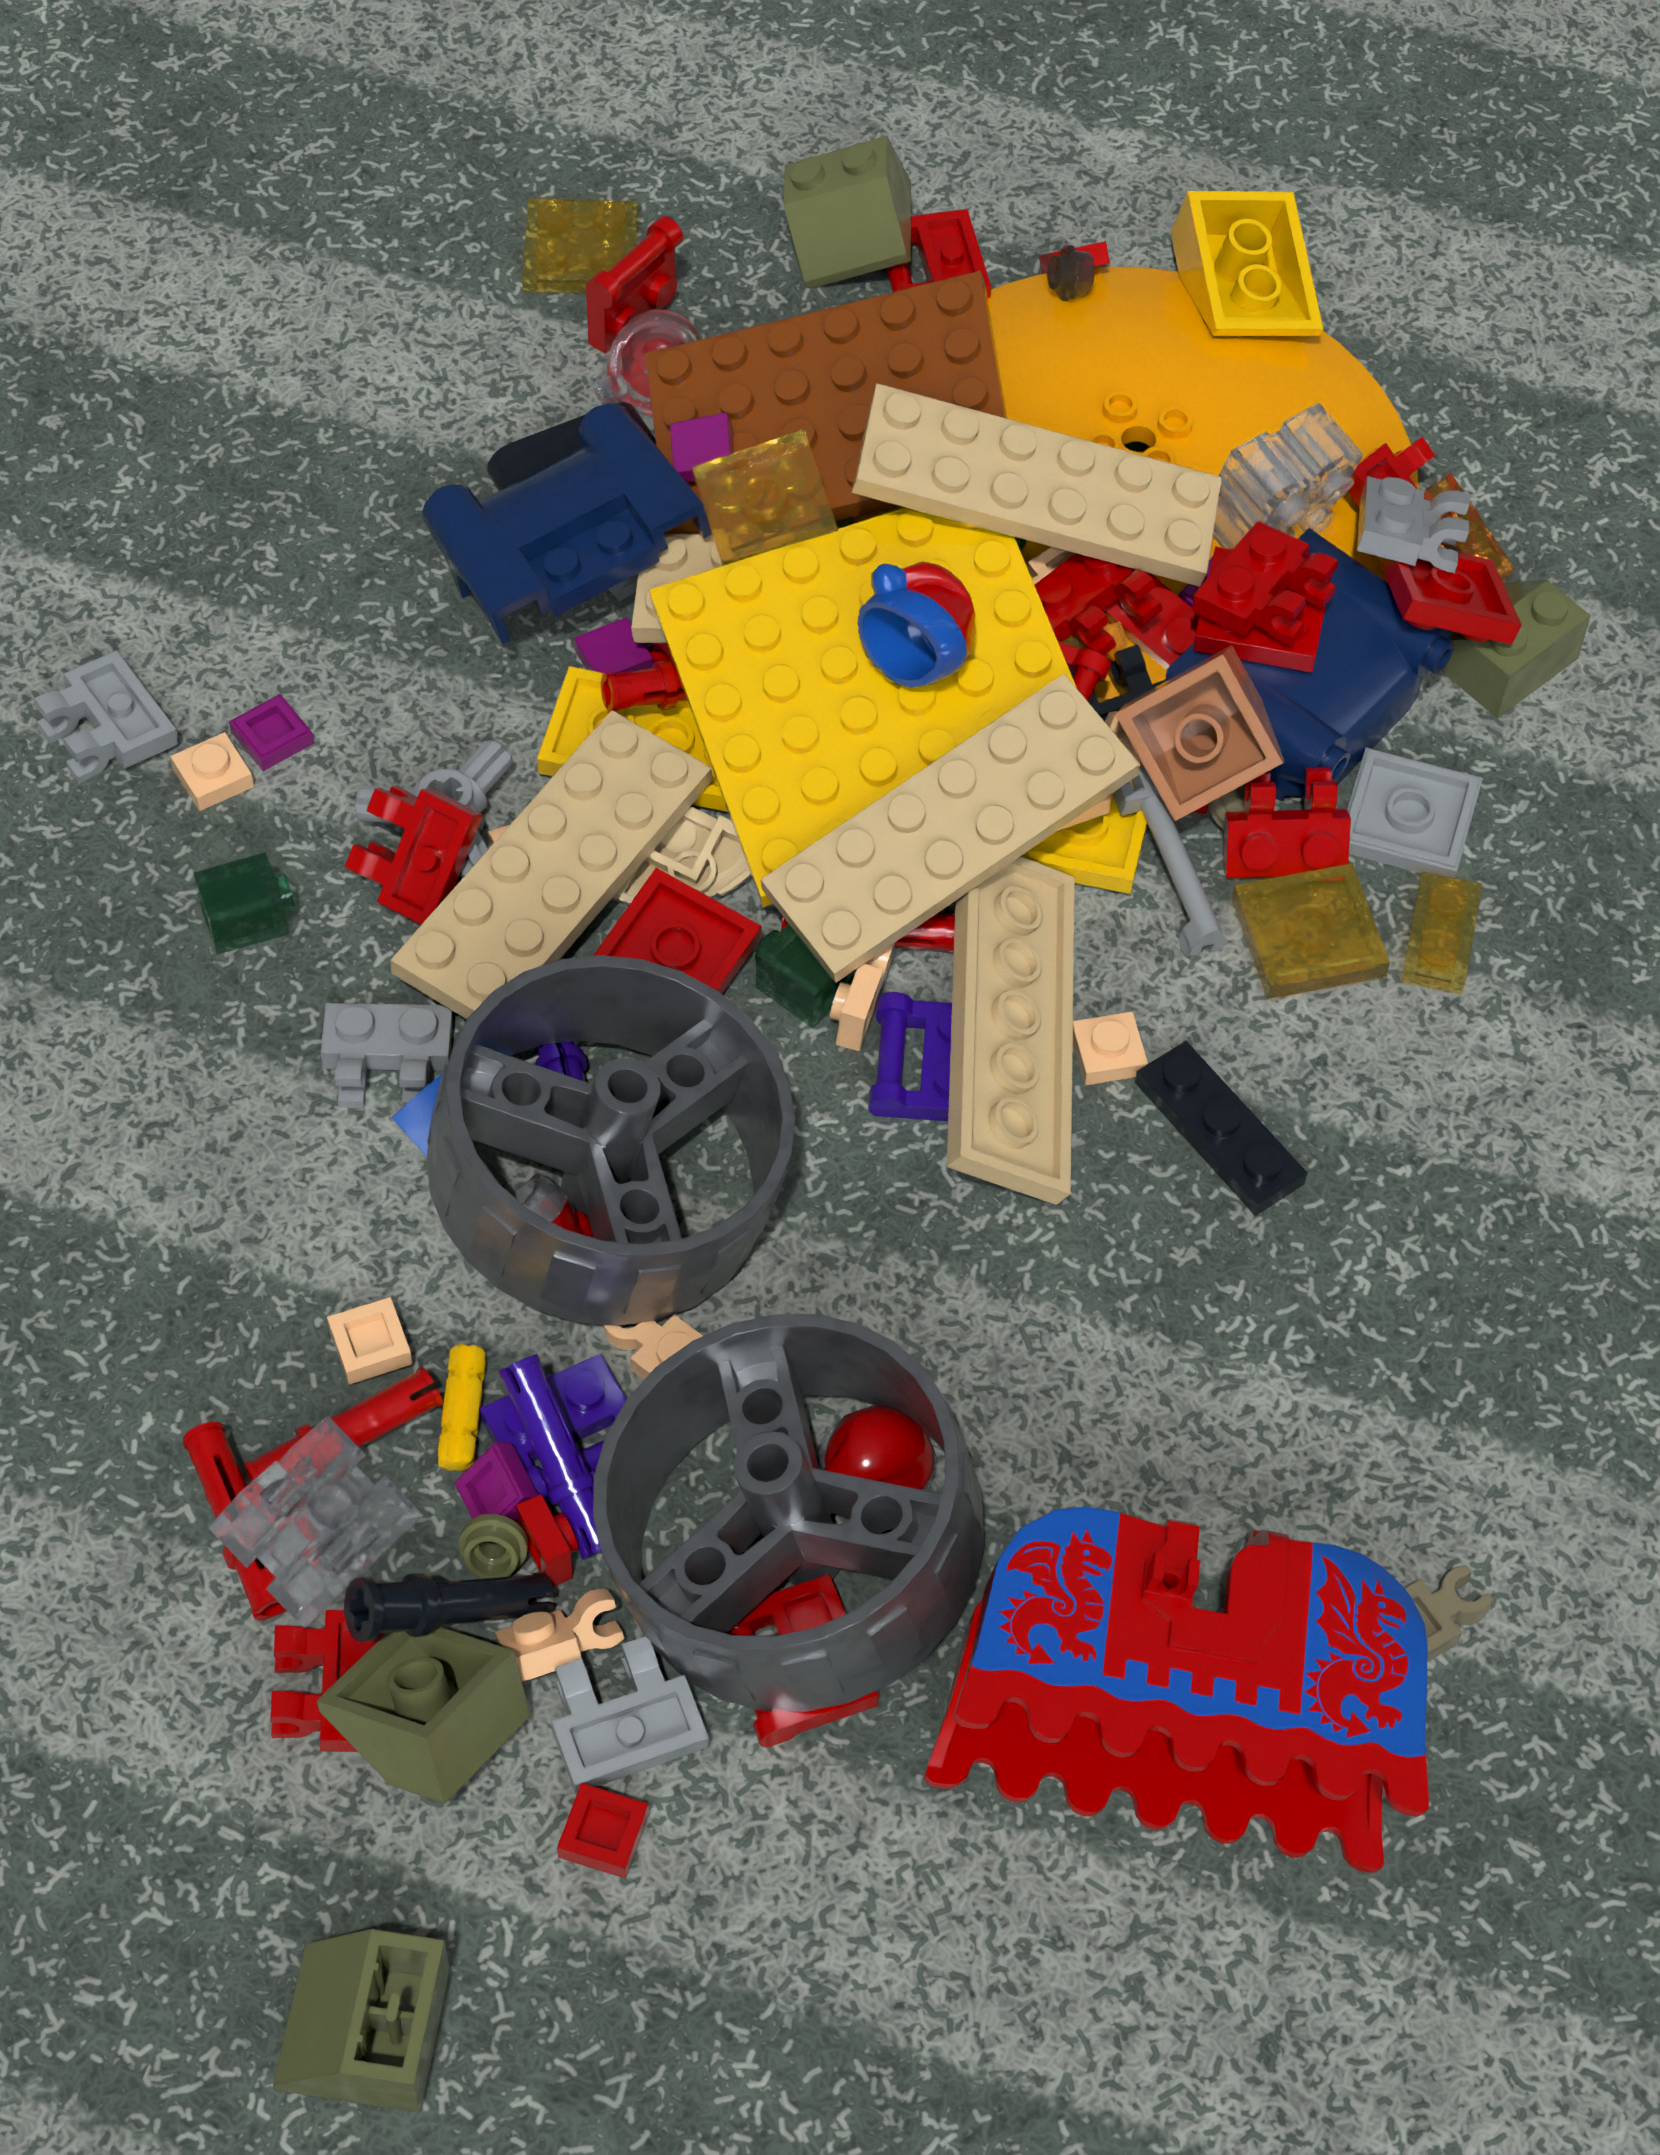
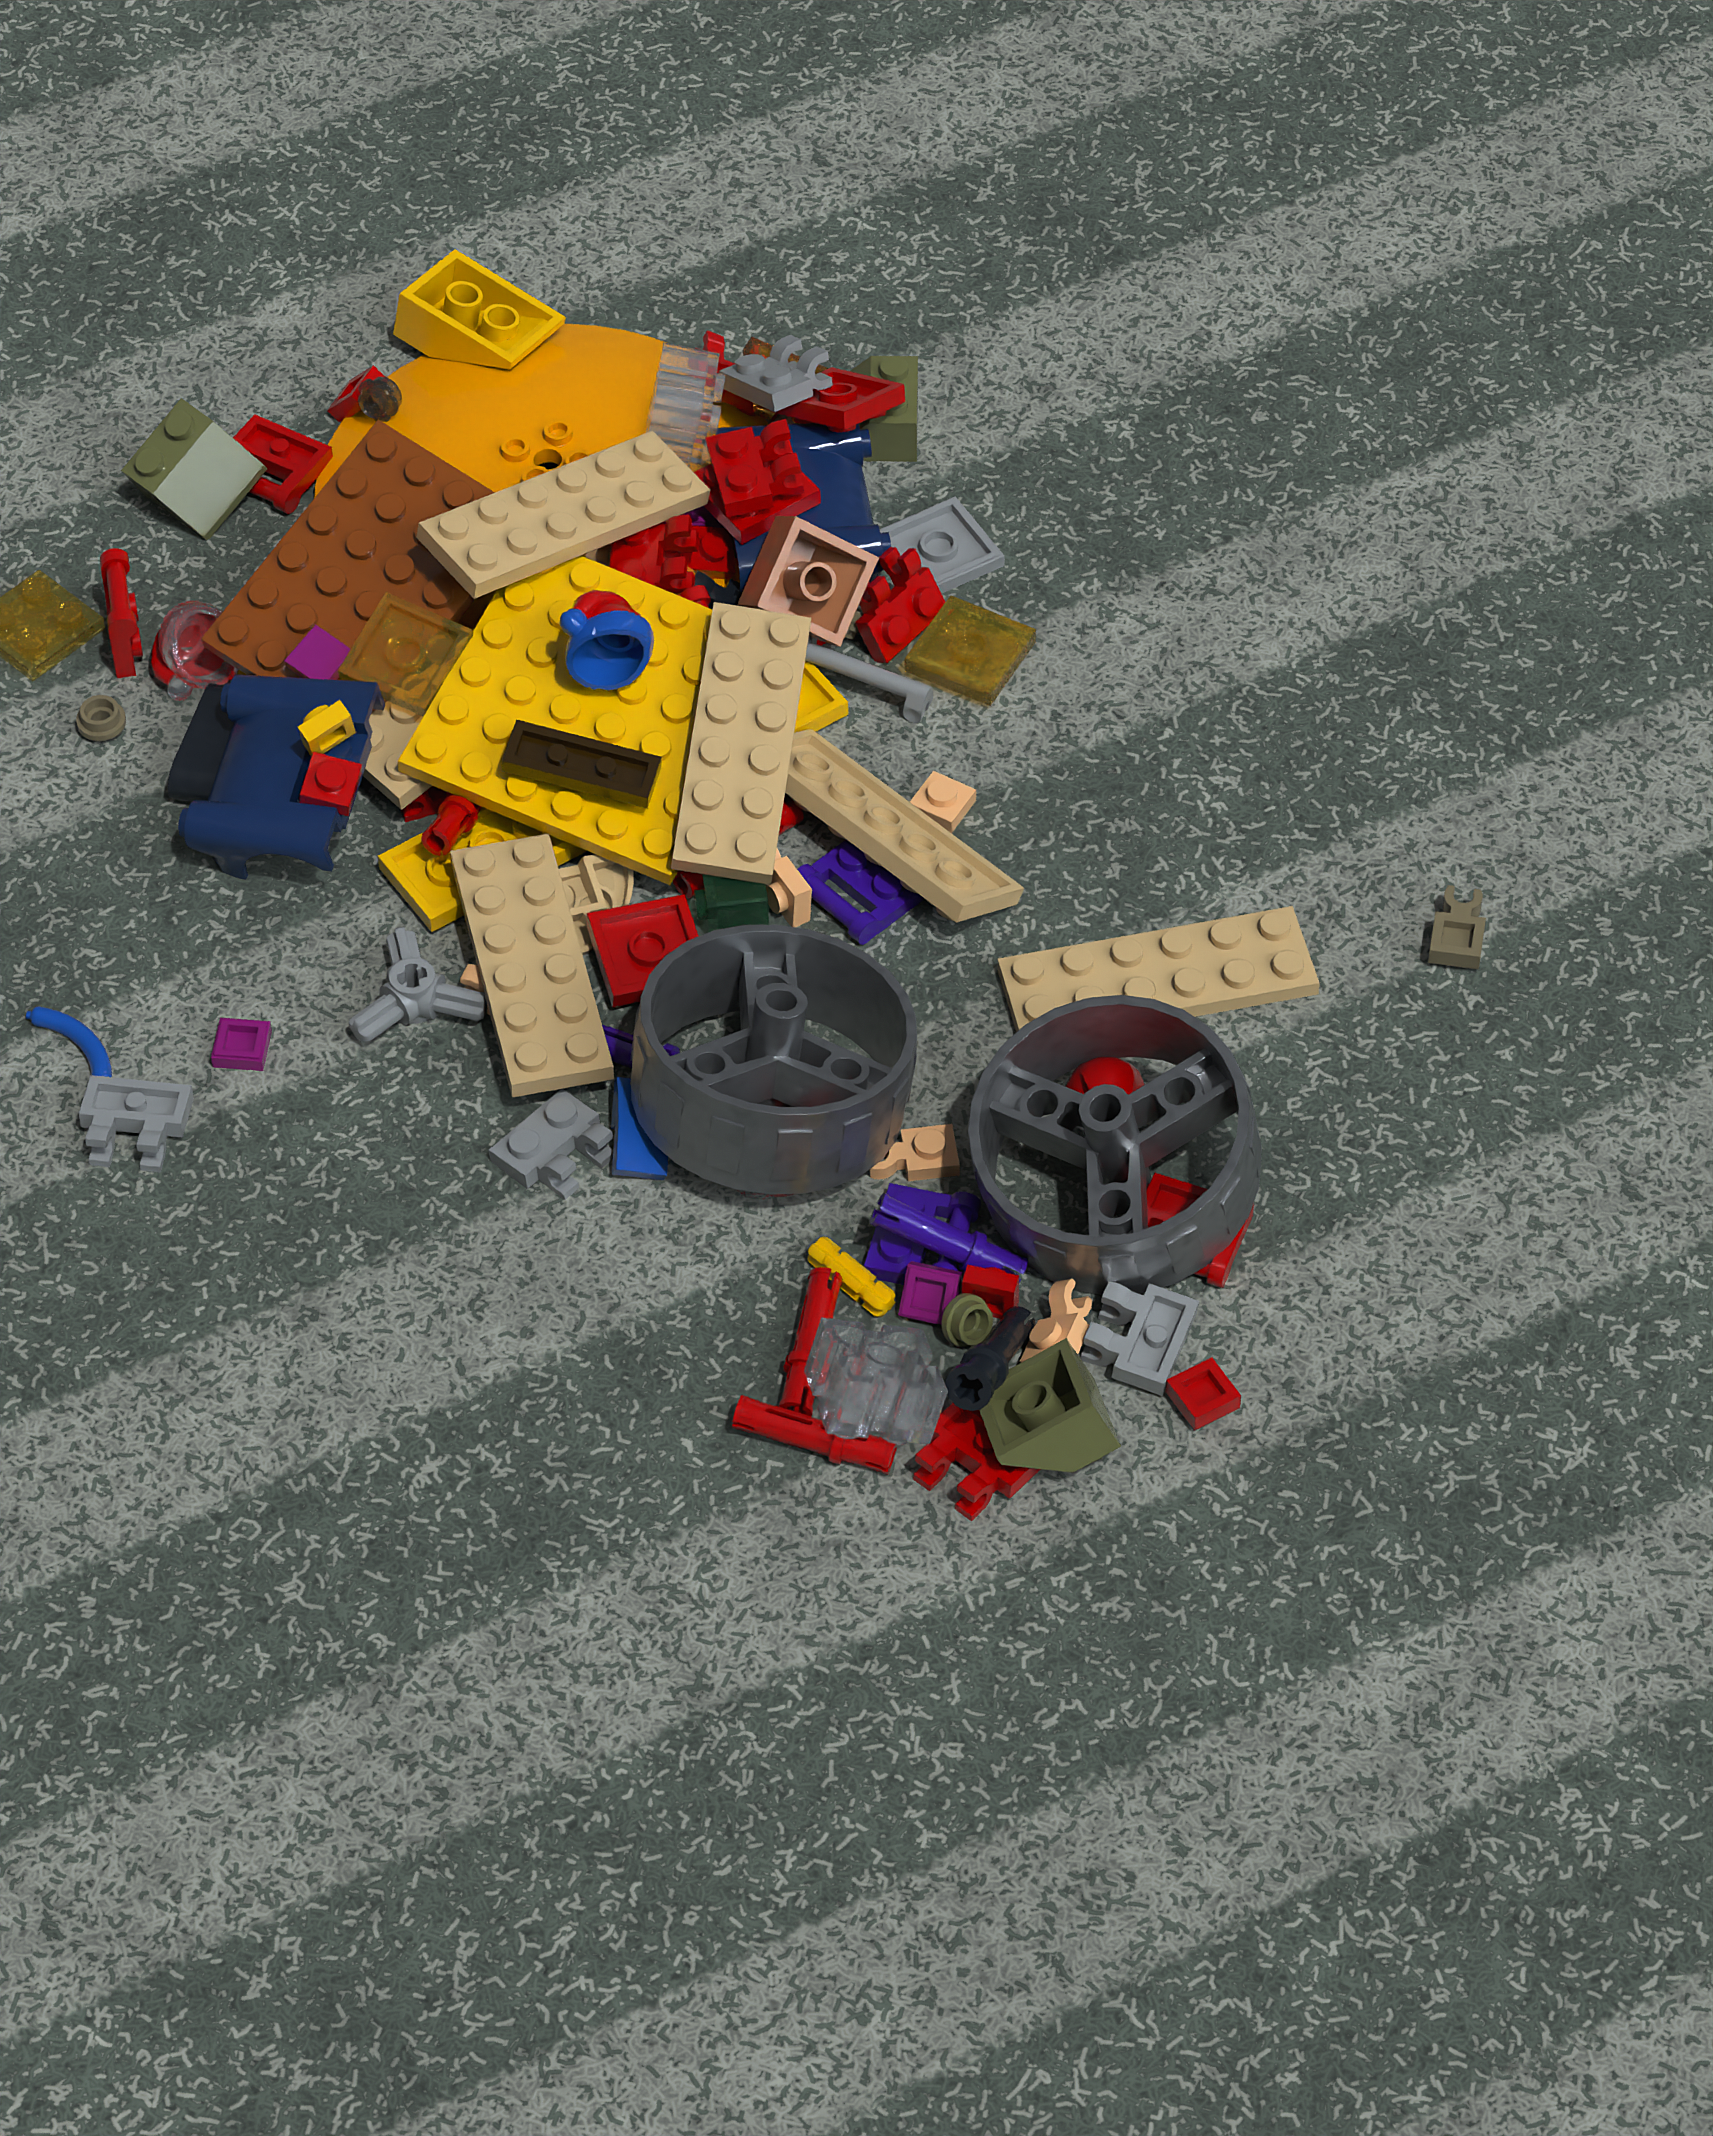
camera: 45 degrees left, 5 degrees down
(165, 621) = (76, 1032): none -> blue piece
(212, 771) = (237, 1094): light nougat plate -> none
(243, 902) = (367, 1140): clear green brick -> none
(365, 2019) = (1212, 1579): olive slope -> none
(369, 1340) = (759, 1288): light nougat plate -> none
(428, 854) = (448, 1018): red plate -> none
(523, 364) = (100, 718): none -> dark tan plate
(564, 560) = (331, 782): none -> red plate
(602, 505) = (326, 727): none -> yellow plate
(612, 649) = (383, 830): magenta tile -> none
(781, 724) = (581, 763): none -> dark brown plate
(1091, 1393) = (1188, 966): none -> tan plate
(1221, 1128) = (1051, 790): black plate -> none
(1266, 1711) = (1405, 1041): red animal -> none
(1441, 933) = (1035, 595): clear yellow plate -> none

